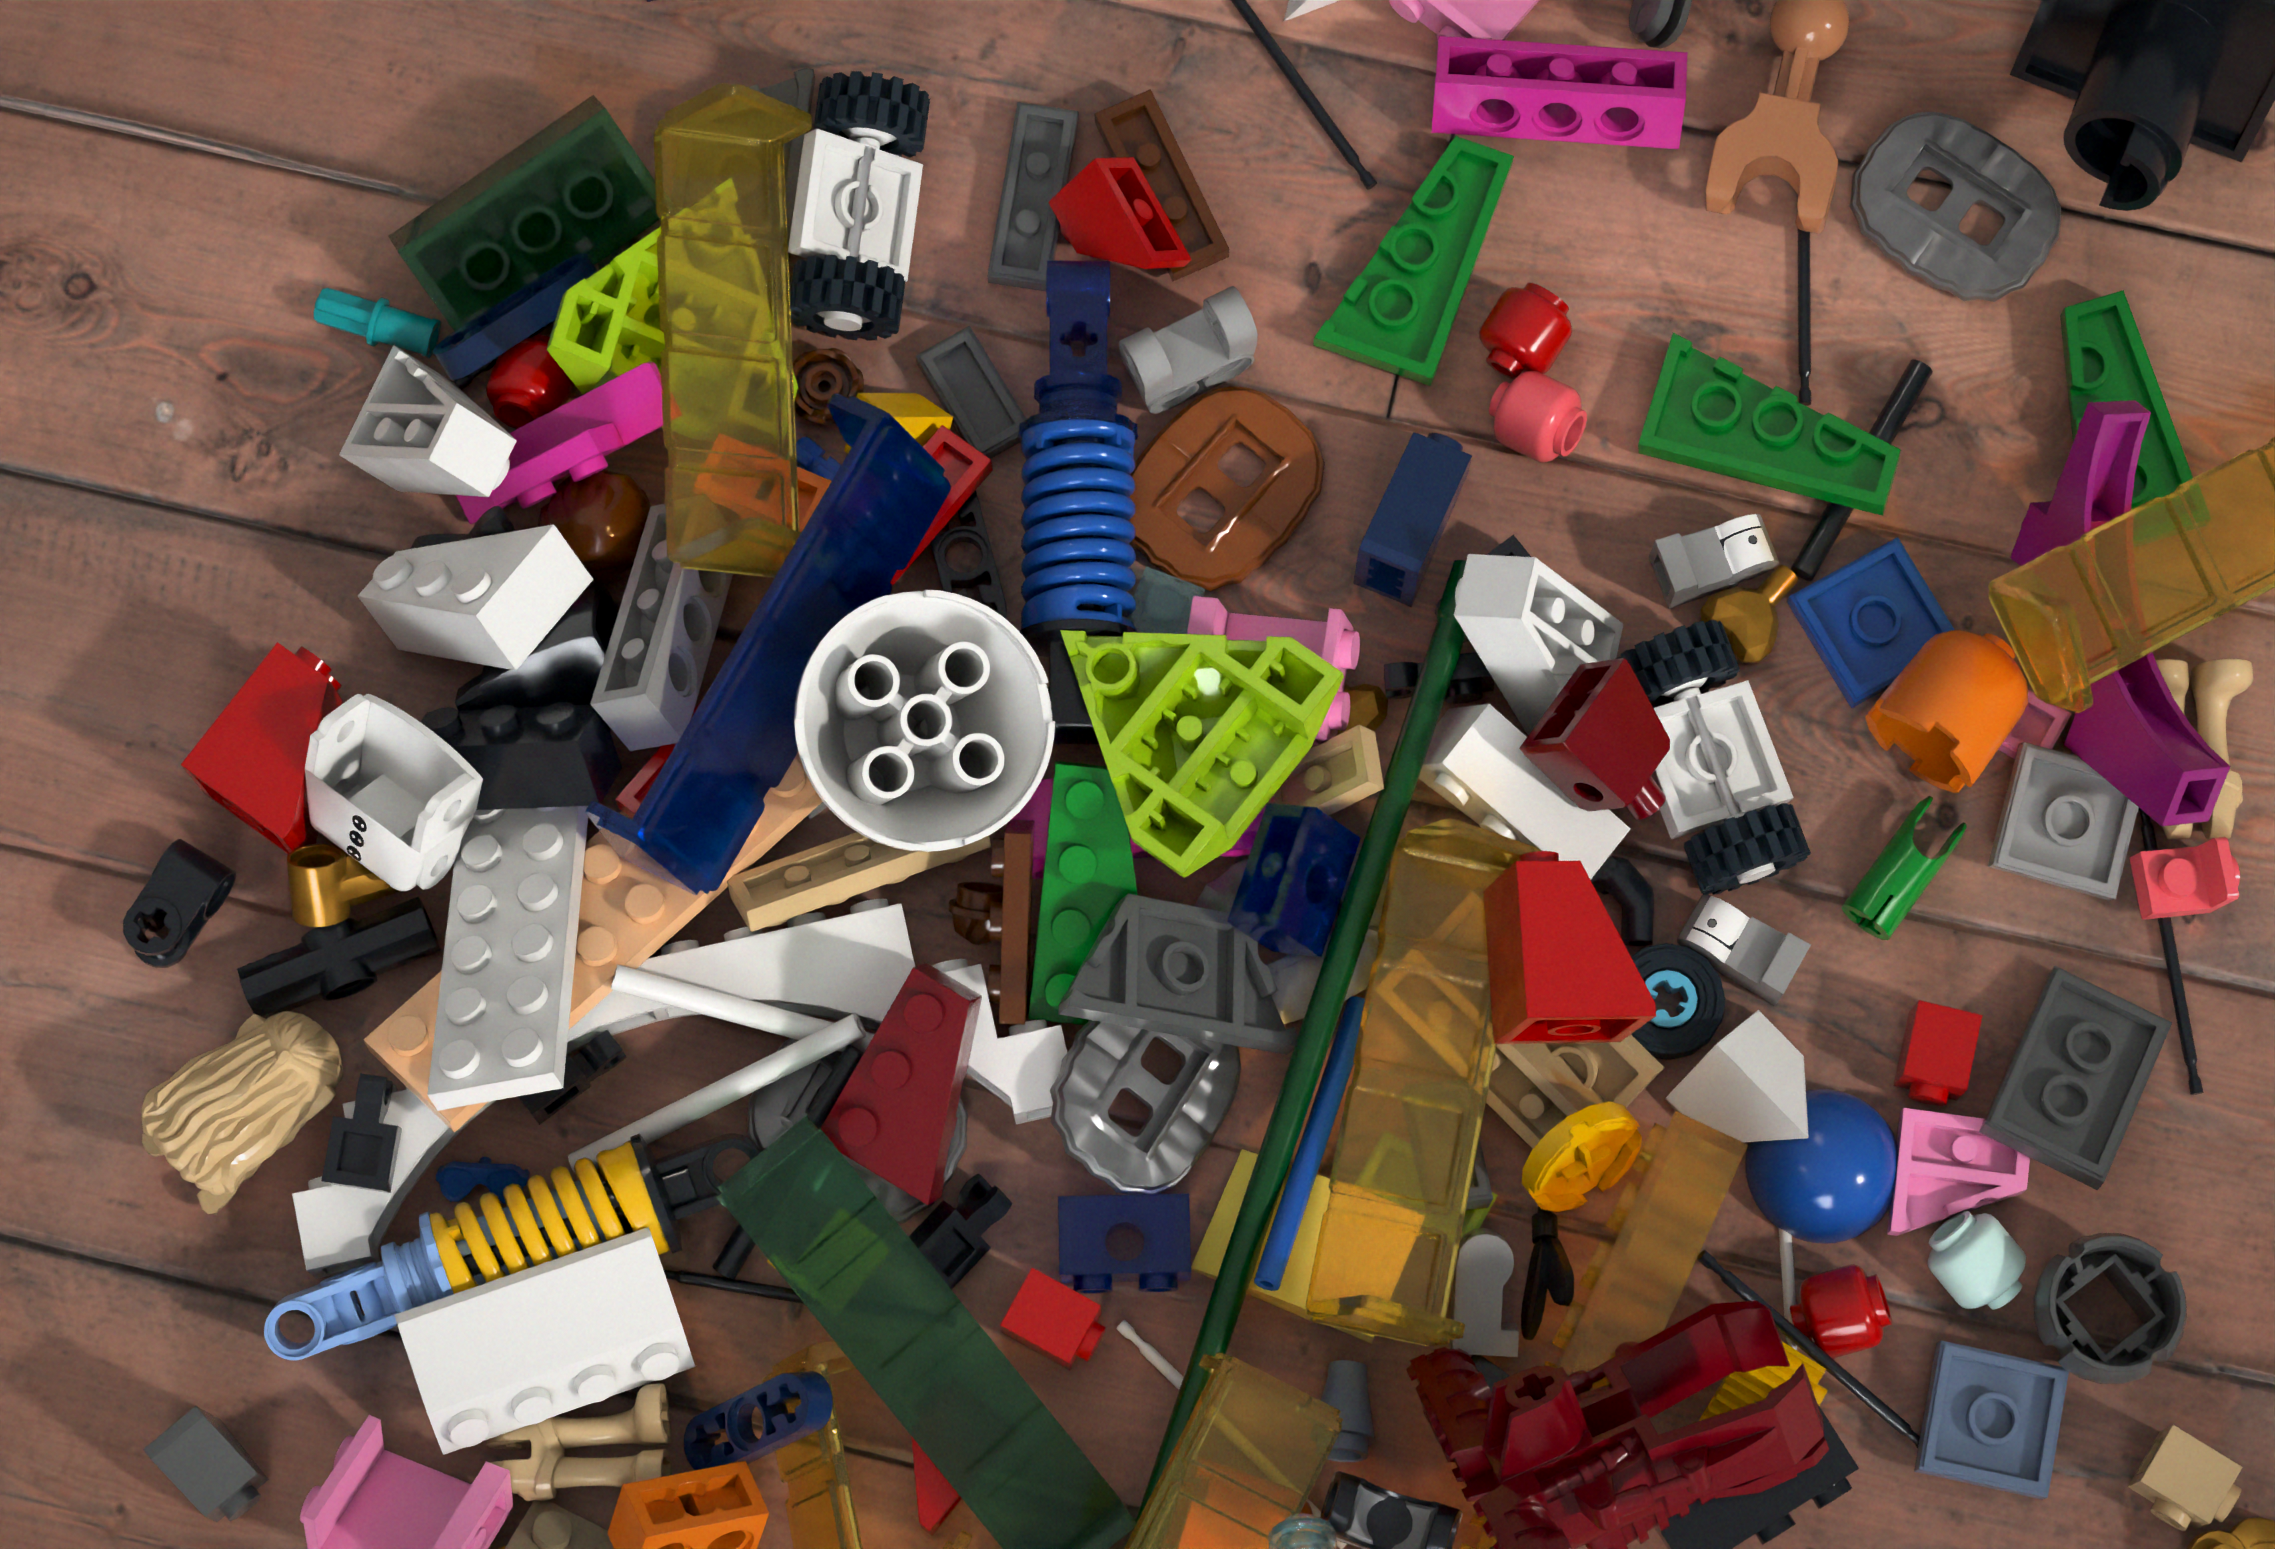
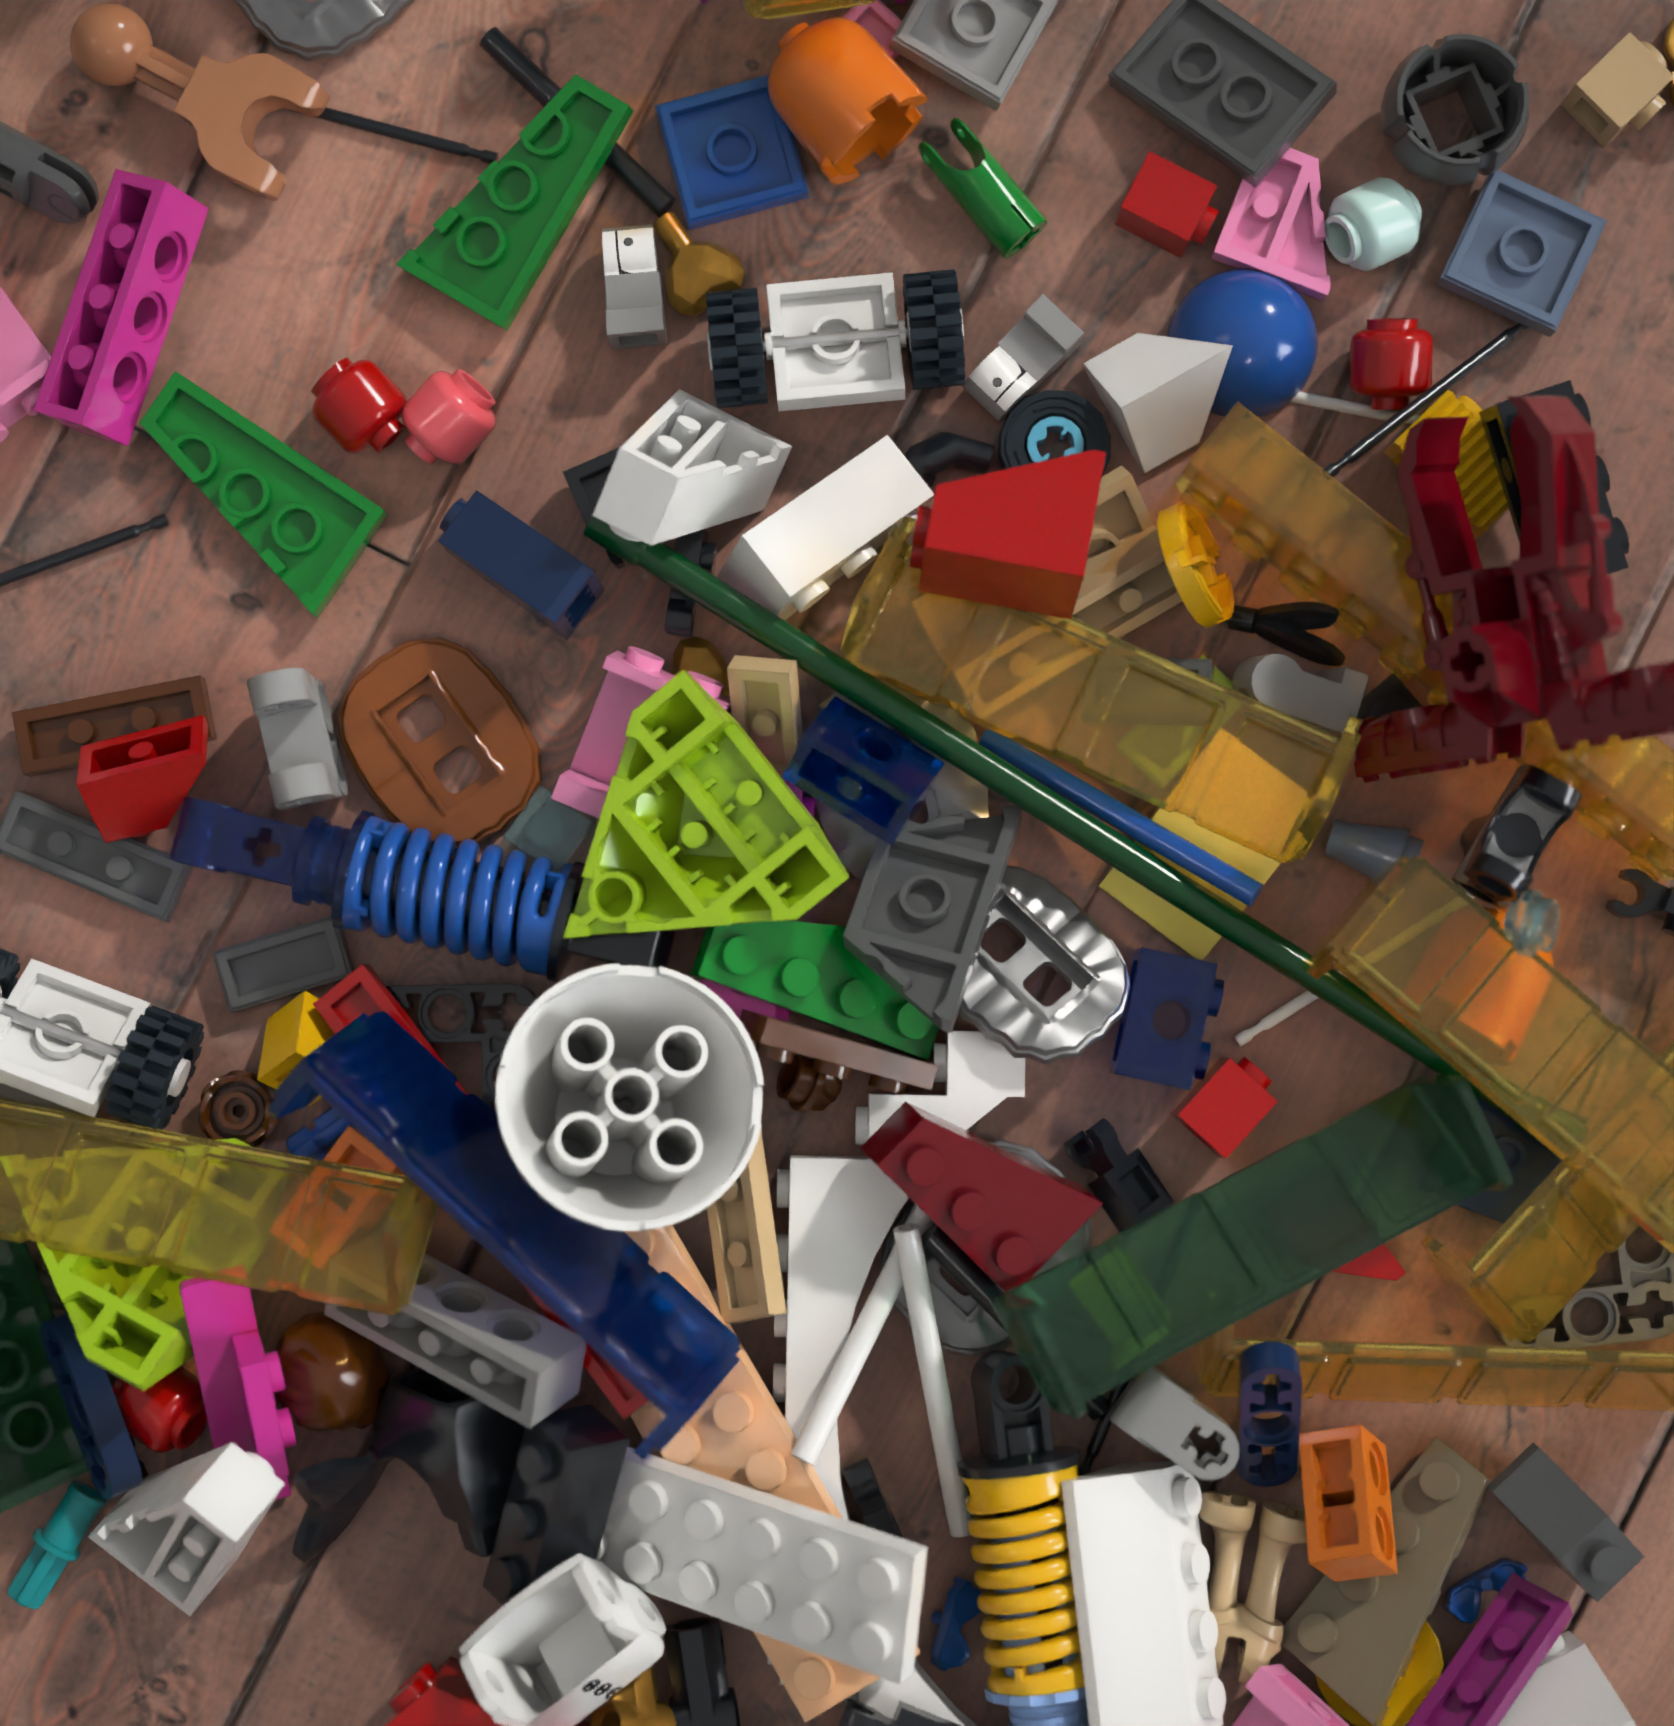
camera: 75 degrees left, 10 degrees up
(477, 596) = (379, 1511): white wedge -> none
(734, 1324) = (1162, 1415): none -> light grey piece
(1602, 741) = (804, 436): dark red torso -> none

